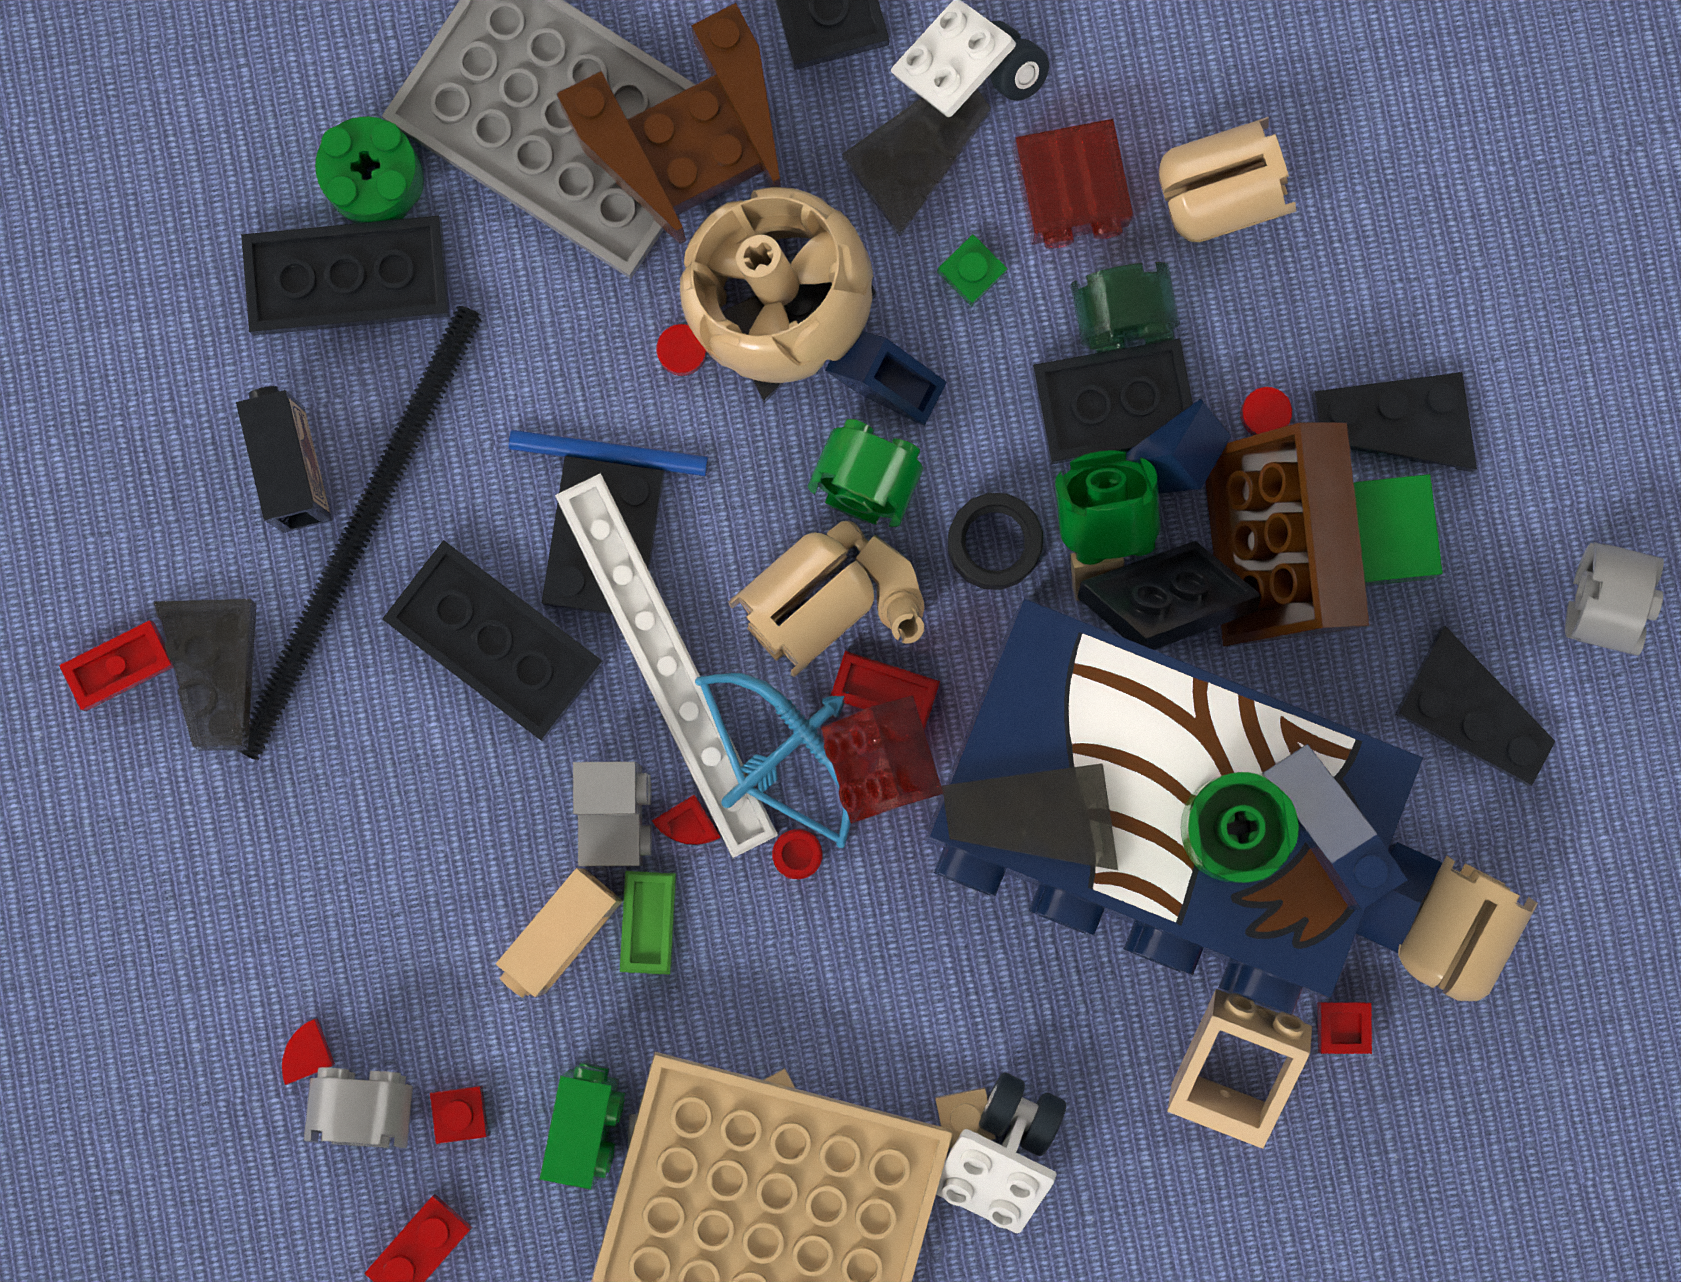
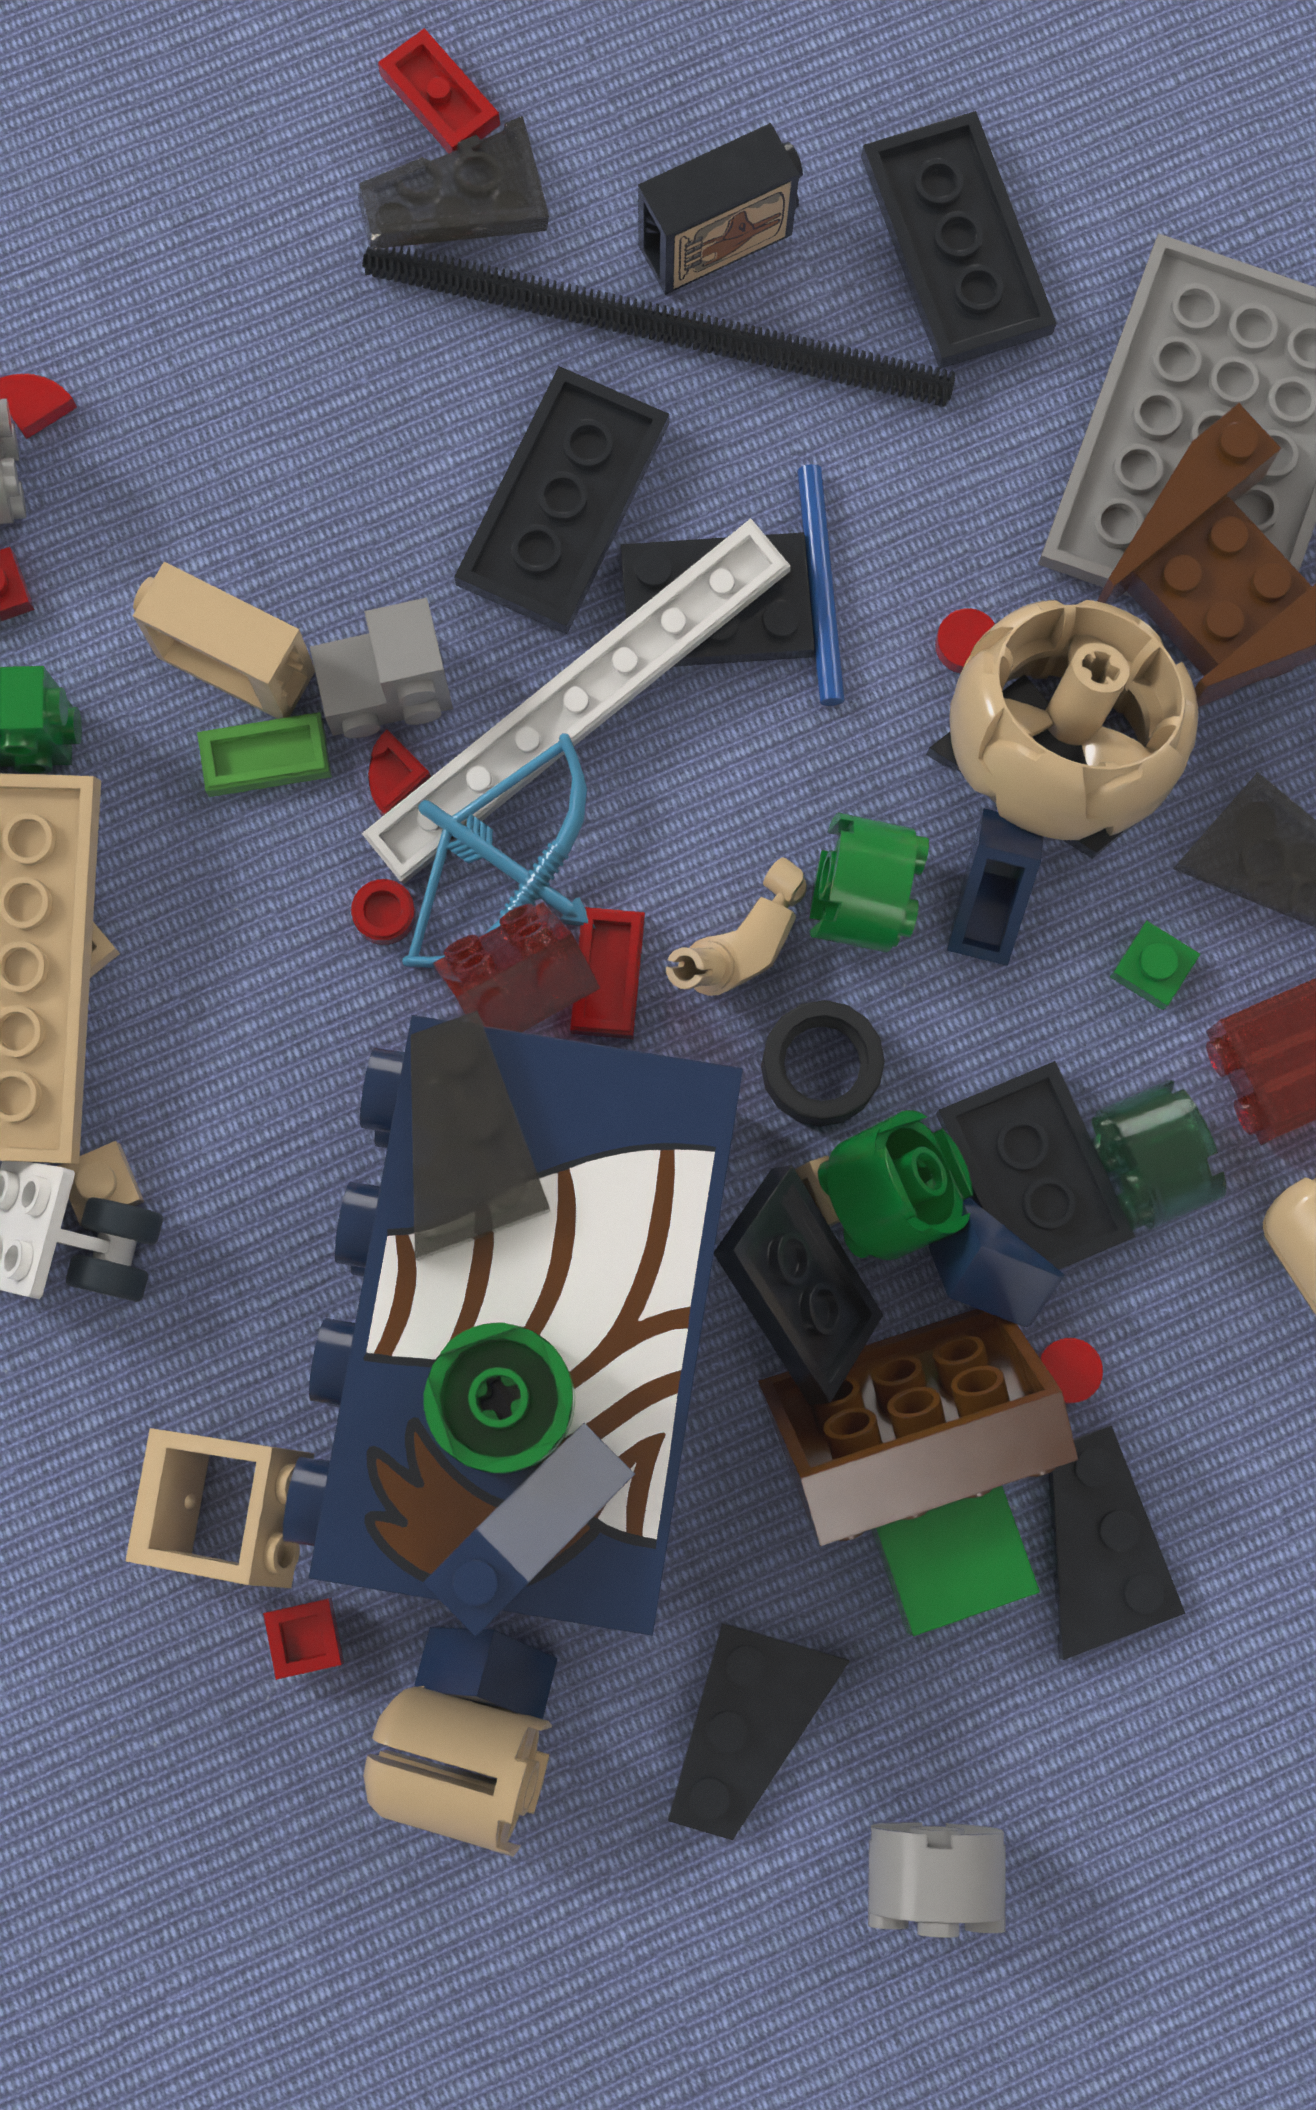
camera: 75 degrees right, 5 degrees down
(347, 154) = (1089, 232): green brick -> none
(789, 583) = (692, 842): tan cylinder -> none

